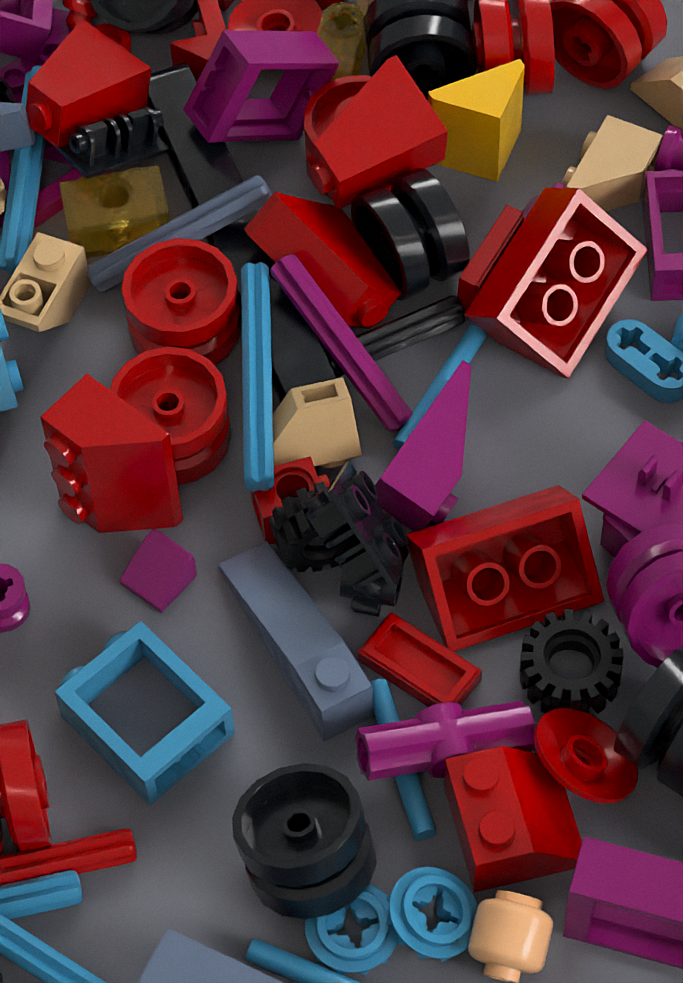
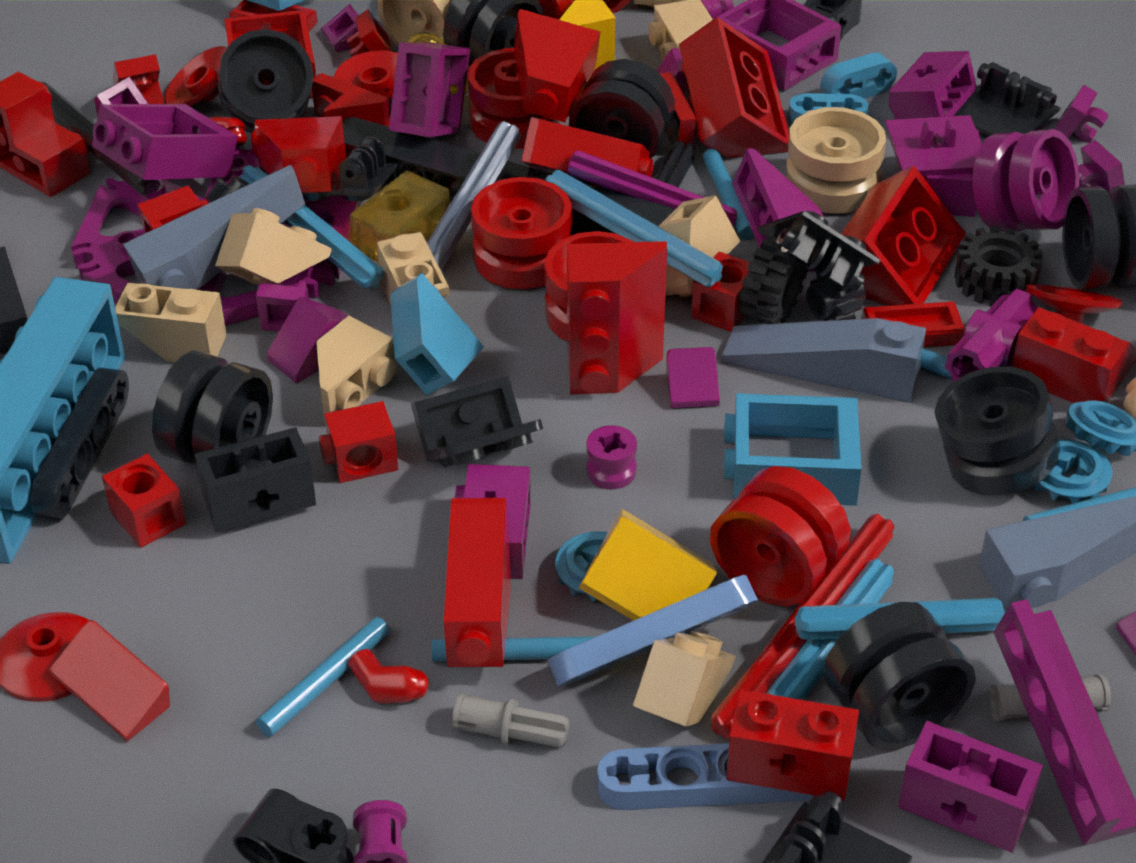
camera: 45 degrees left, 15 degrees down
(554, 426) = (835, 157): none -> tan wheel

